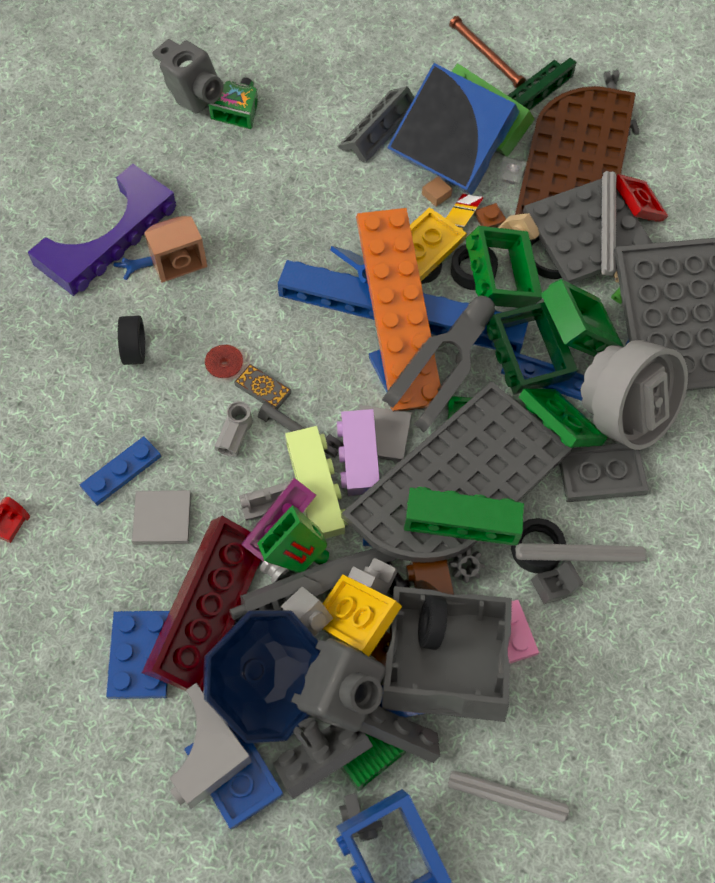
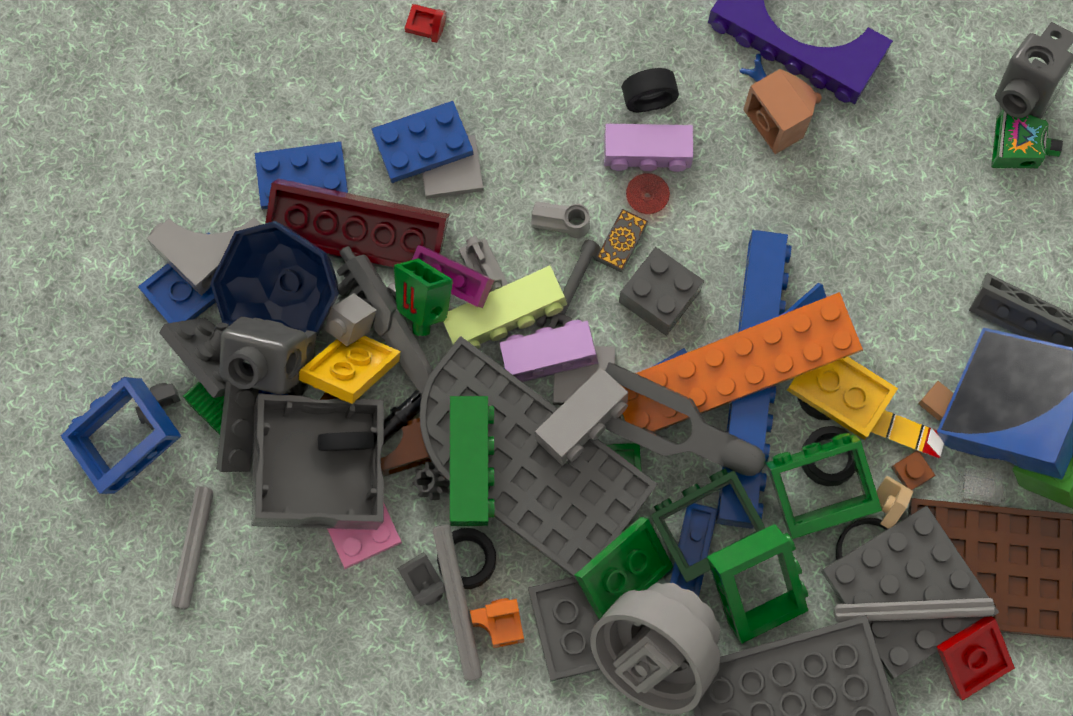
camera: 80 degrees right, 10 degrees up
(120, 470) = (498, 116): blue plate -> none
(133, 535) = (422, 141): none -> blue plate
(182, 353) = (648, 146): none -> lavender brick
(317, 360) = (661, 291): none -> dark grey brick
(376, 576) = (396, 383): light grey bracket -> none
(433, 421) = (582, 417): none -> light grey brick
(598, 521) = (501, 621): none -> orange brick

